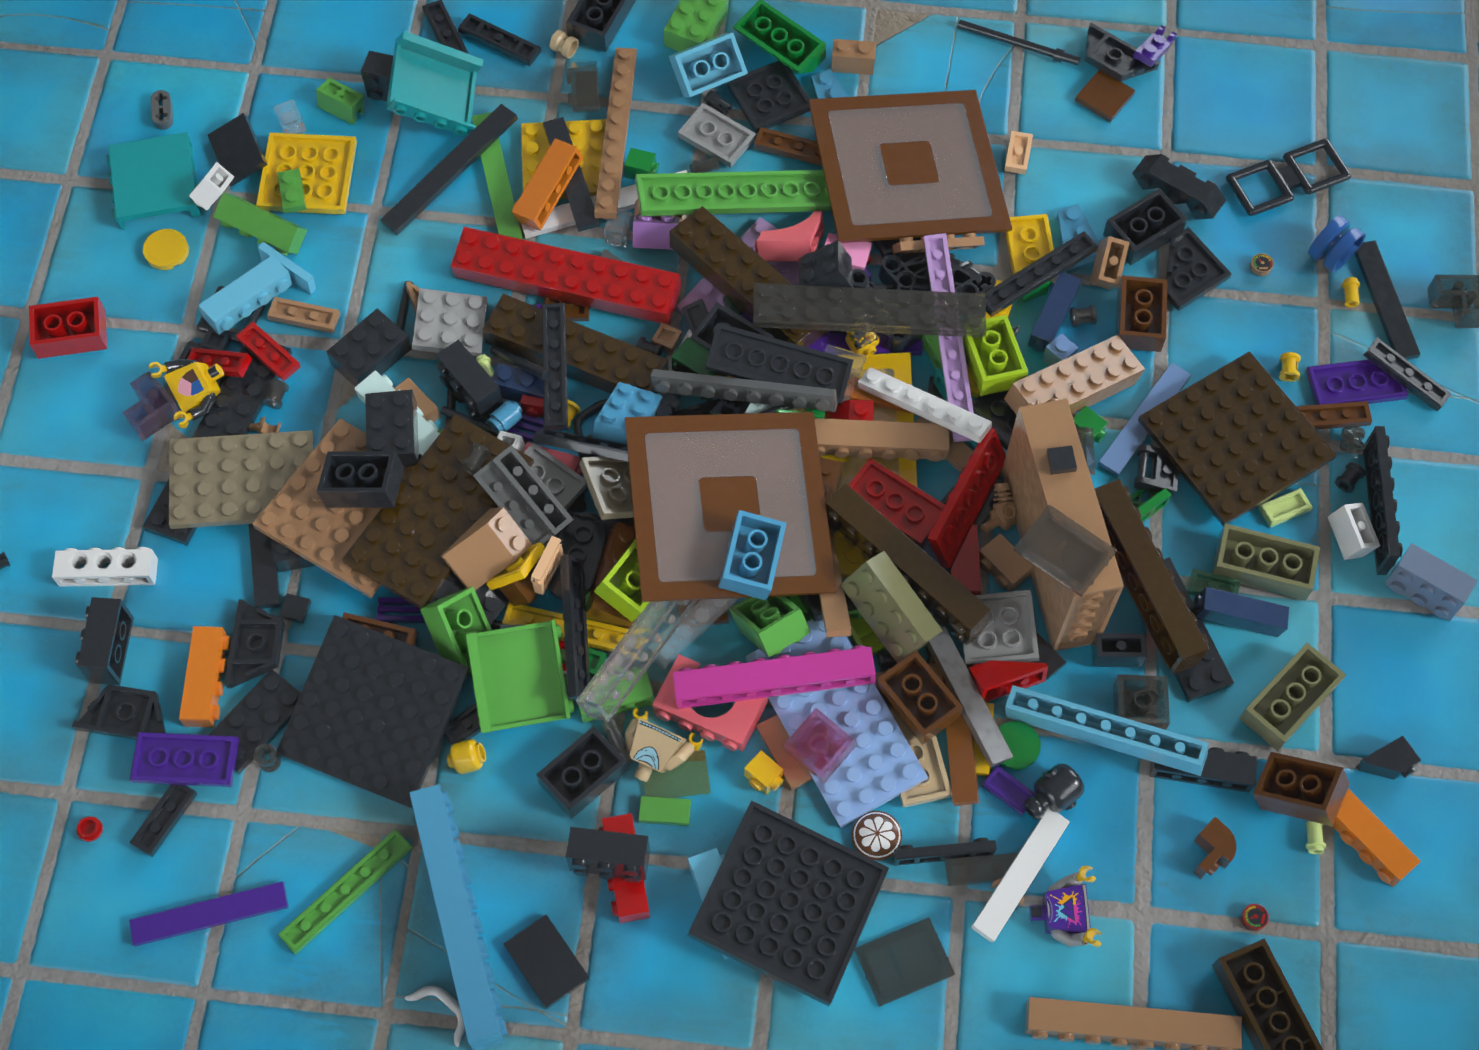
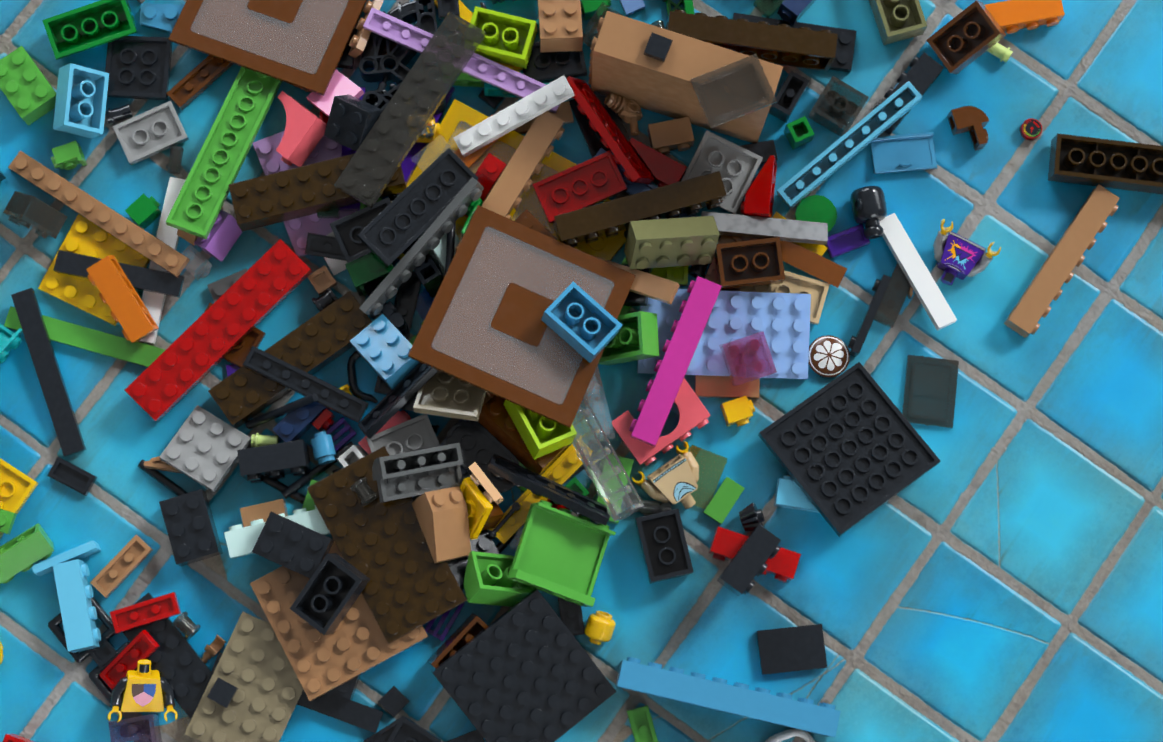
camera: 65 degrees left, 15 degrees up
(223, 448) = (222, 692): none -> black tile
(366, 236) = (72, 476): none -> black tile
(544, 613) = (515, 507): none -> black hinge
(654, 84) = (68, 156): none -> bright green brick
(662, 846) = (751, 517): none -> black piece
(1088, 679) = (799, 132): none -> green brick
(1141, 795) = (903, 150): none -> dark azure door

